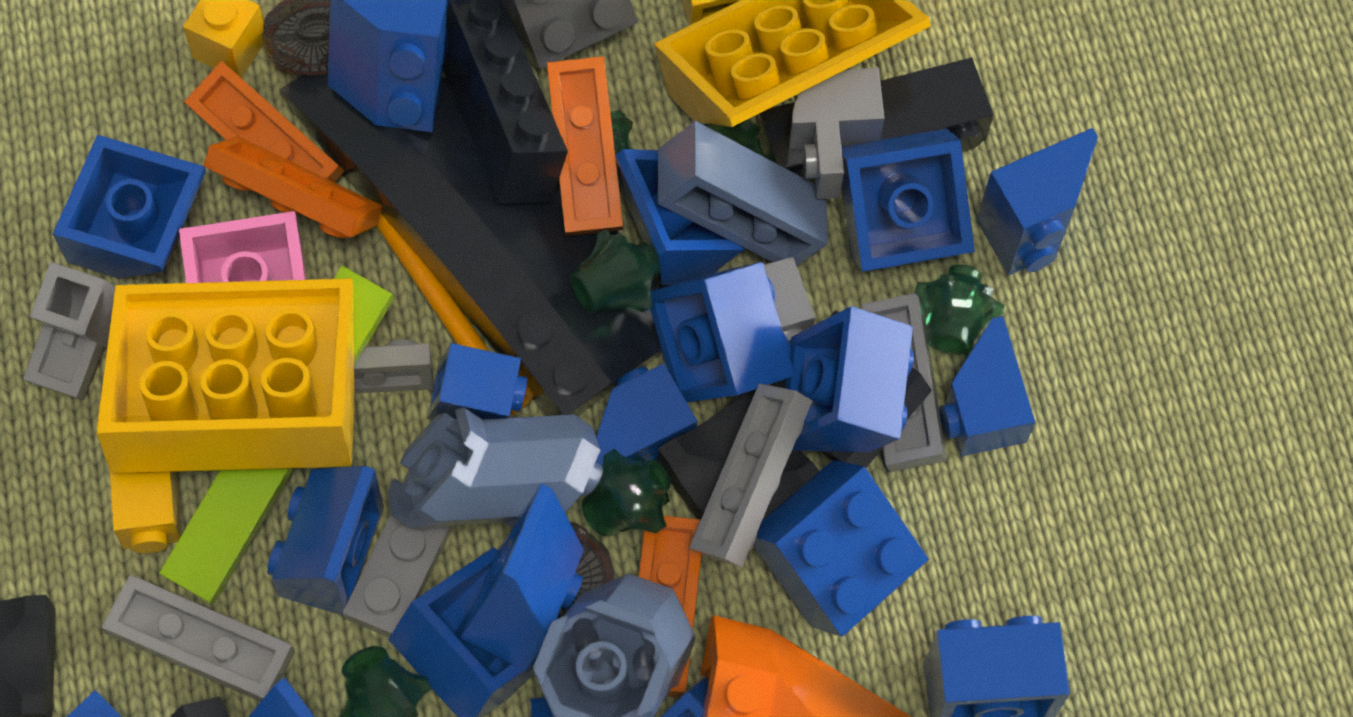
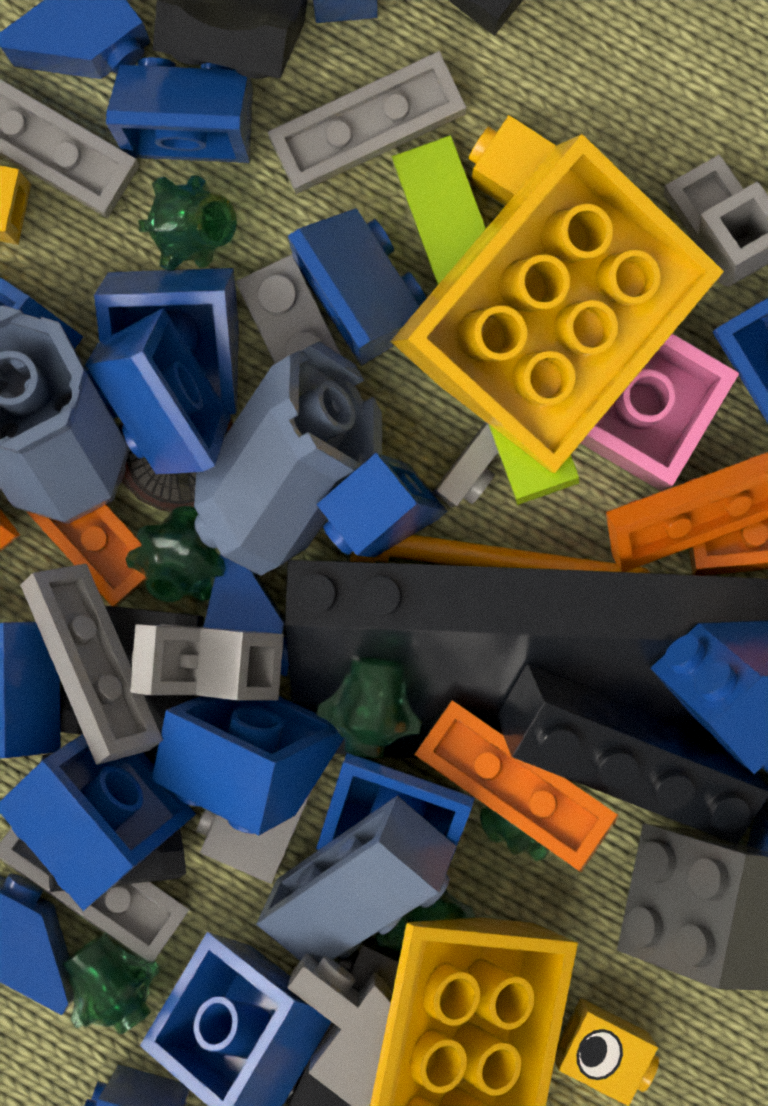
camera: 135 degrees right, 20 degrees up
(679, 399) = (206, 662): none -> light grey brick

